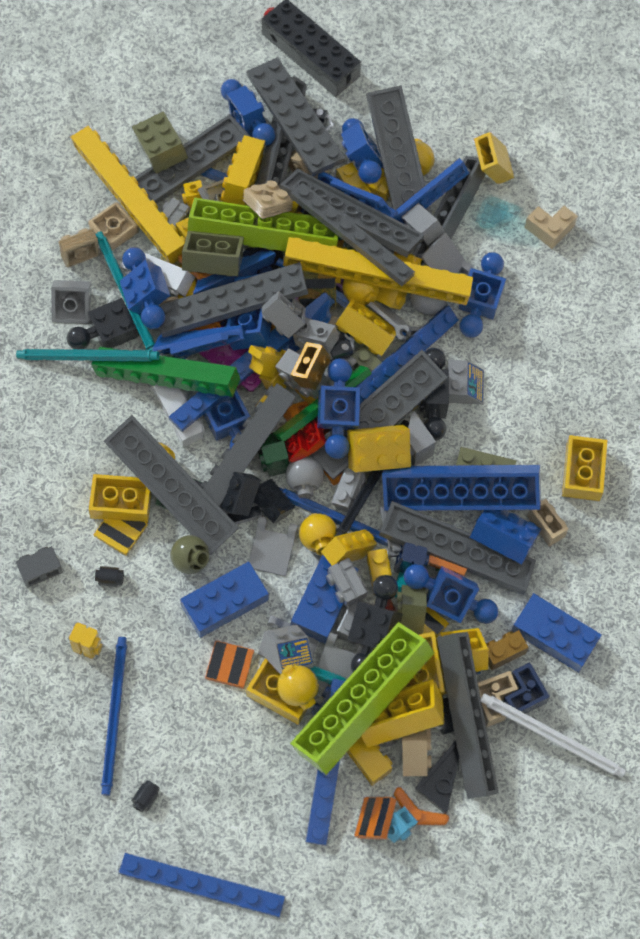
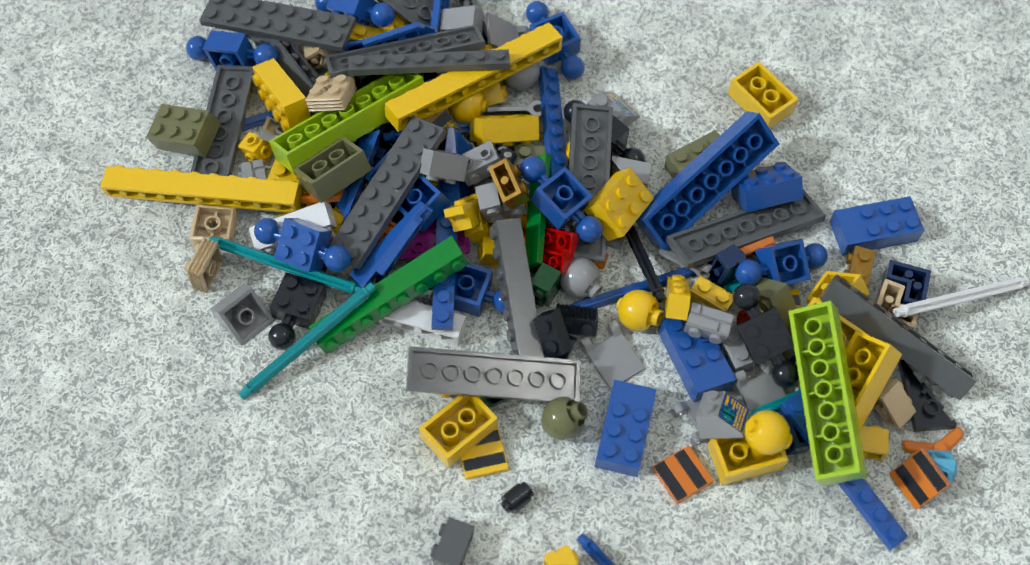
camera: 45 degrees left, 5 degrees down
(348, 489) = (624, 259): light grey brick -> none
(551, 525) = (788, 152): tan brick -> none

